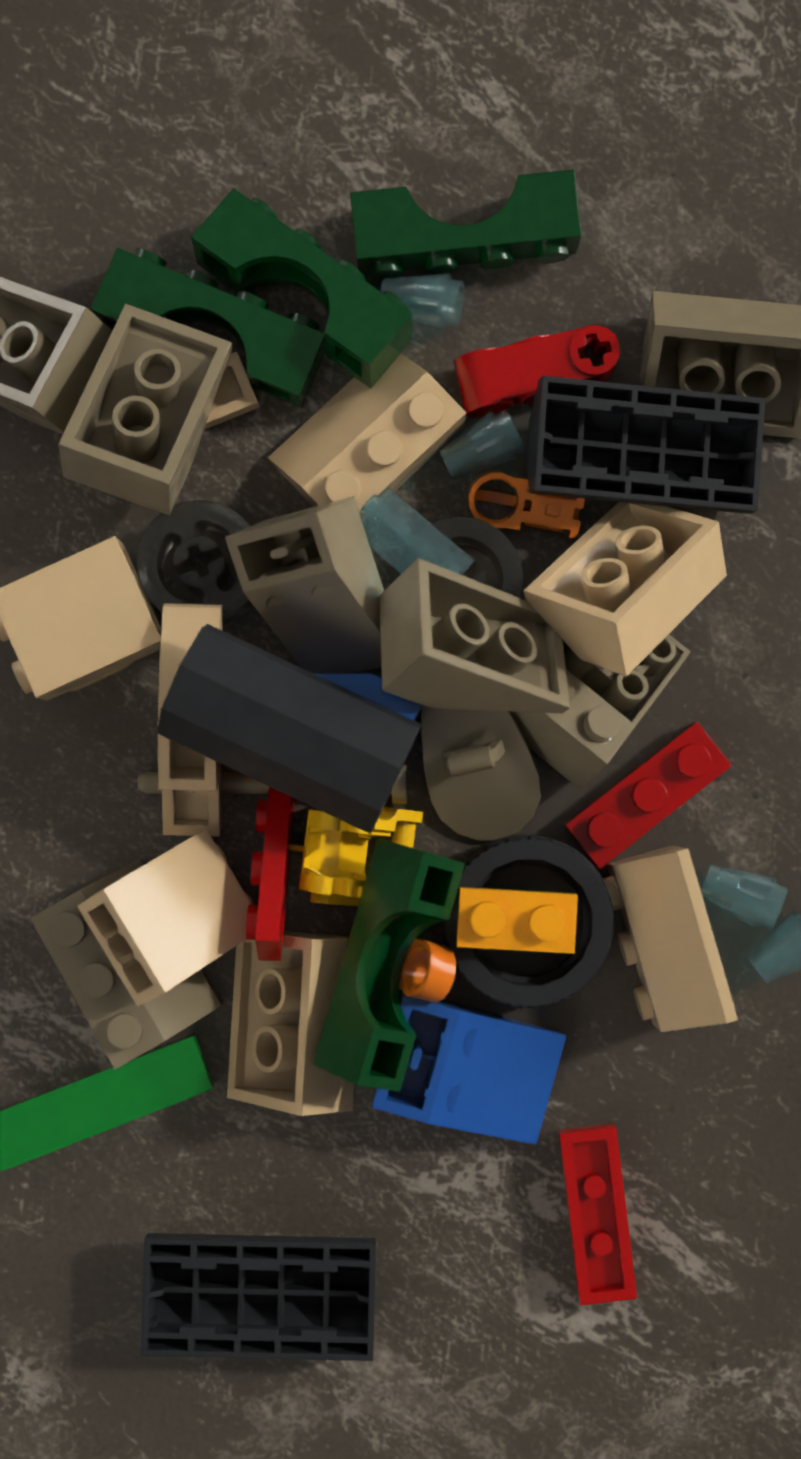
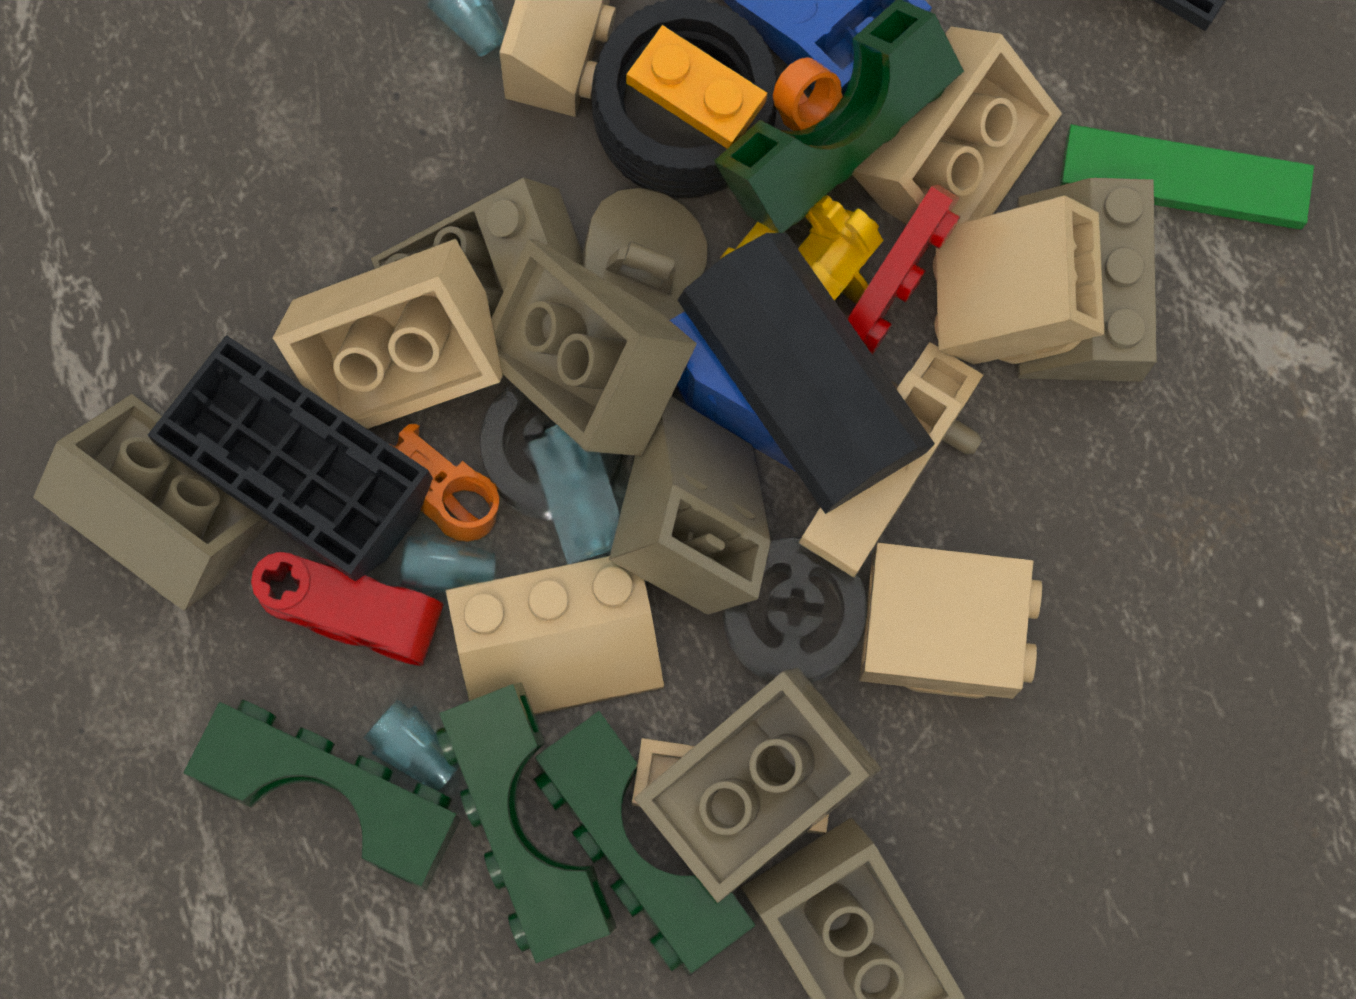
camera: 155 degrees left, 10 degrees down
(647, 795) = (497, 151): red plate -> none

